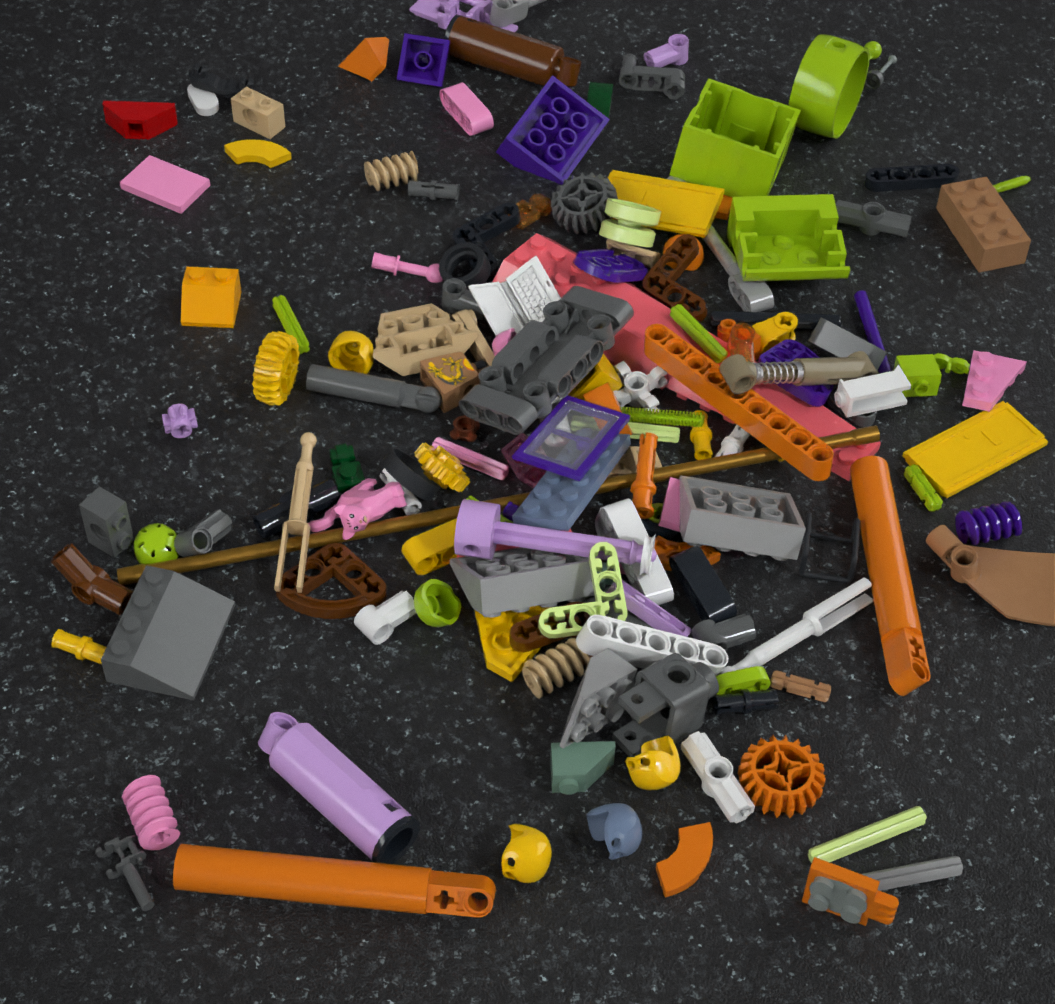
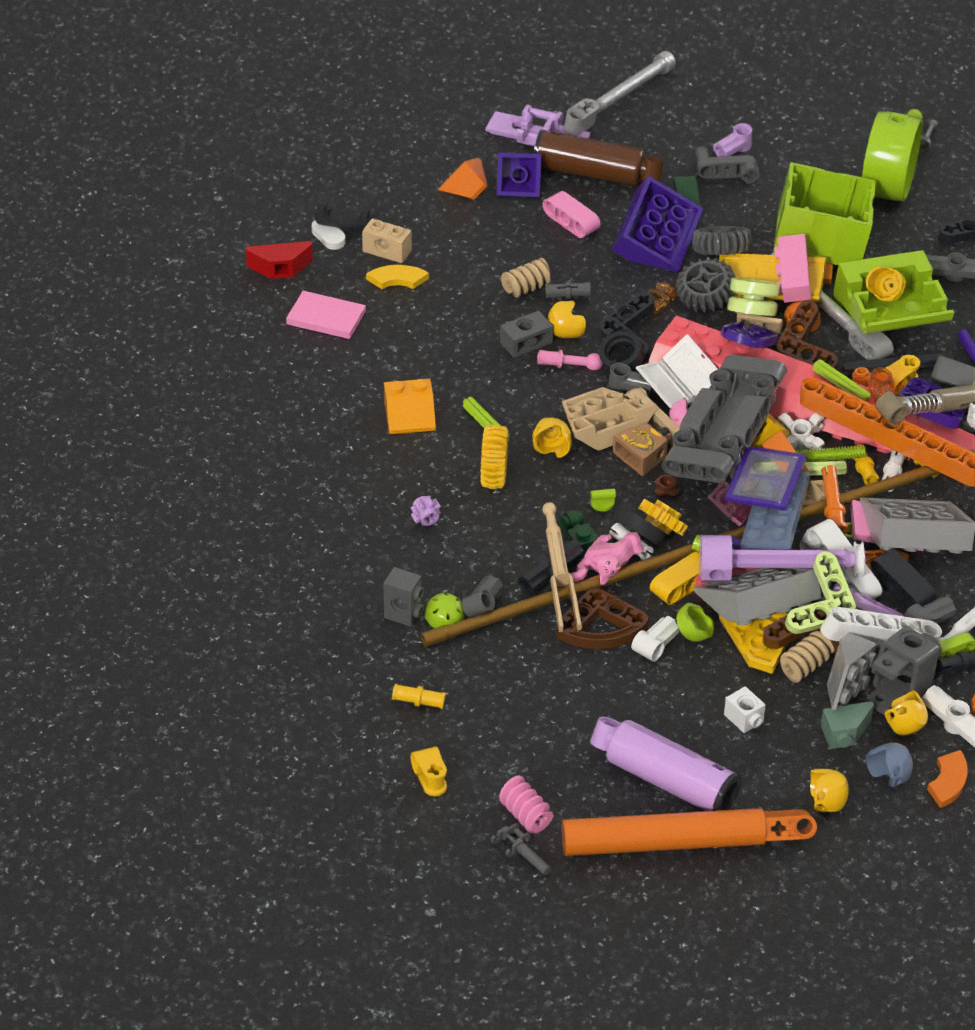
camera: 10 degrees left, 5 degrees down
(58, 747) = (430, 770): none -> yellow piece
(90, 581) = (406, 645): reddish brown piece -> none
(166, 634) = (484, 676): dark grey slope -> none
(369, 232) = (526, 334): none -> dark grey brick
(372, 388) = (579, 463): dark grey piece -> none
(385, 435) = (603, 499): none -> lime plate
(413, 226) = (564, 322): none -> yellow helmet
(460, 715) = (744, 709): none -> white brick
(473, 459) = (687, 510): bright pink axle -> none
(616, 156) = (722, 240): none -> dark grey gear
(682, 196) = (793, 268): none -> bright pink brick
(774, 226) = (880, 281): none -> yellow helmet

